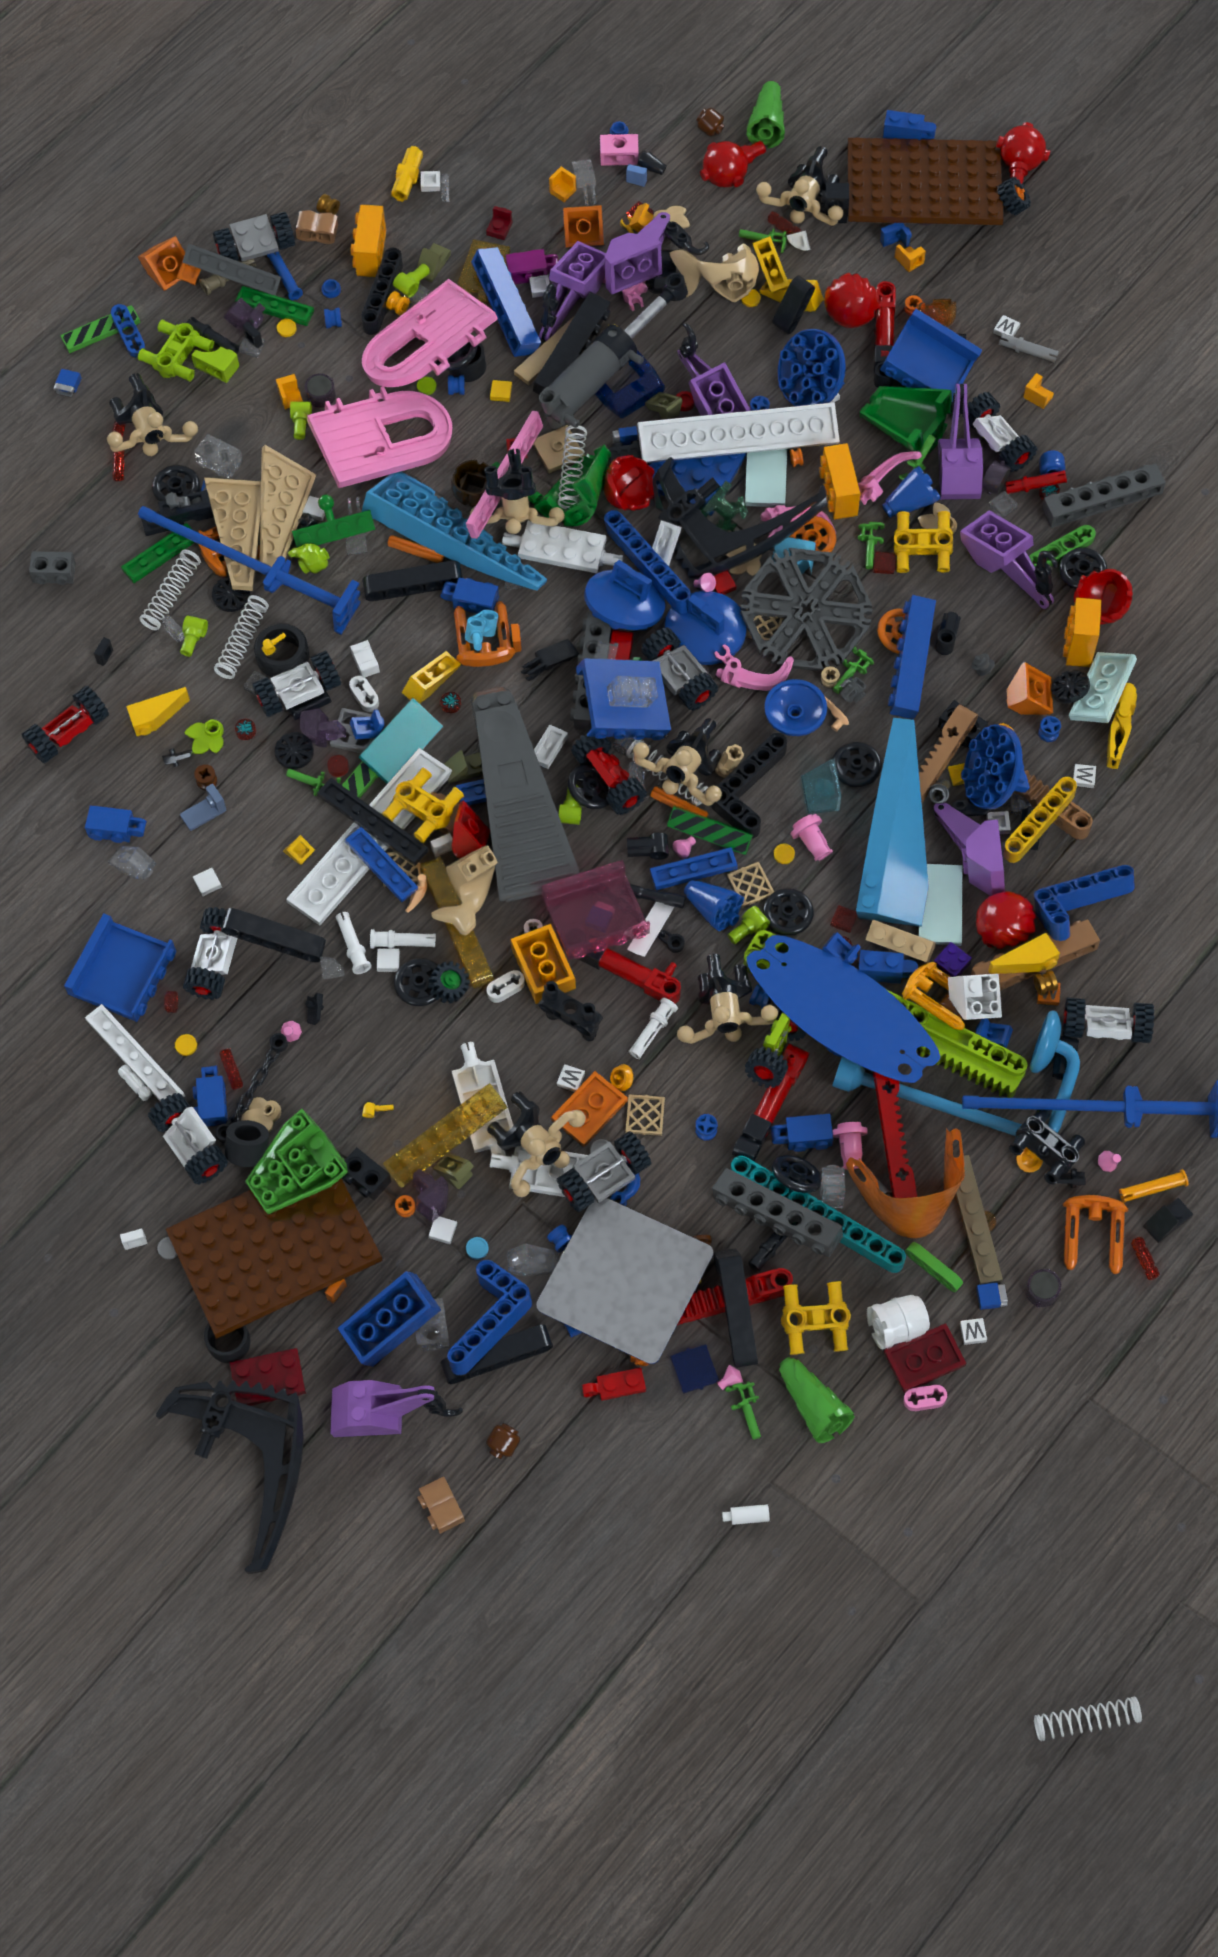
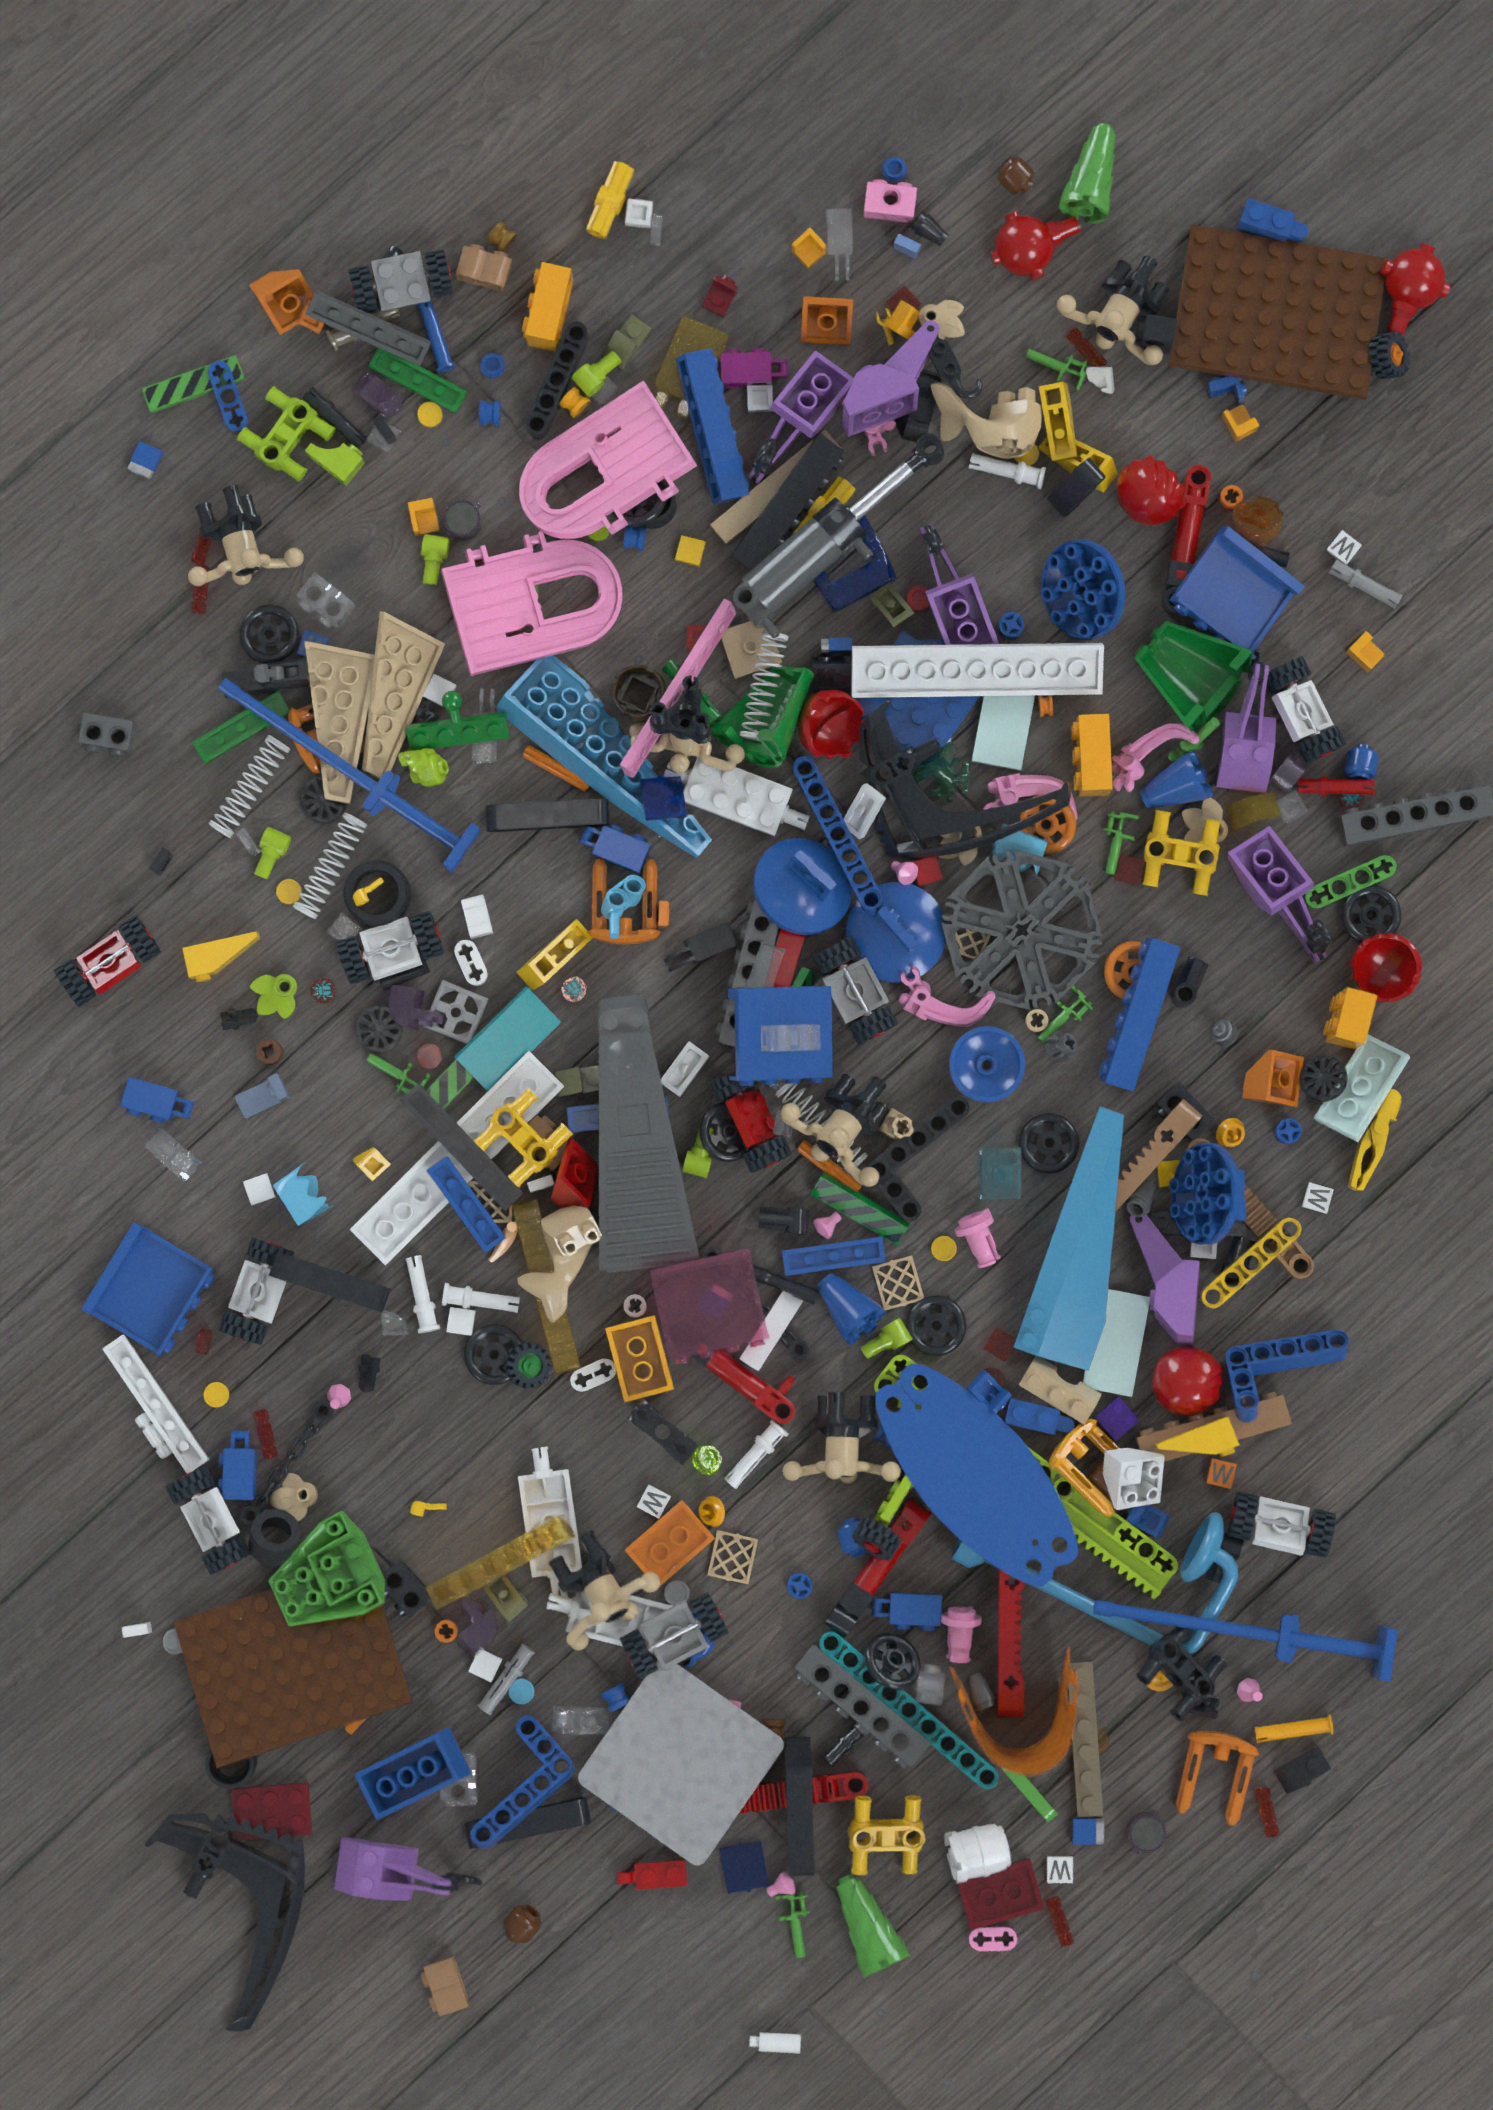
camera: 10 degrees right, 20 degrees up
(208, 662) = (288, 891): none -> yellow piece
(242, 880) = (300, 1196): none -> medium azure piece
(367, 726) = (469, 1016): blue bracket -> none
(459, 1243) = (506, 1679): none -> light grey pin
(503, 551) = (663, 798): none -> clear blue piece
(612, 1037) = (707, 1459): none -> clear neon green hat
(744, 1085) = (845, 1538): none -> blue head
(749, 307) = (1019, 472): none -> white pin
(838, 714) = (1036, 1071): light nougat bar -> none
(972, 507) = (1253, 810): none -> clear yellow slope
(982, 1375) = (1060, 1921): none -> clear red axle
(1045, 982) = (1218, 1467): pearl gold wheel -> none

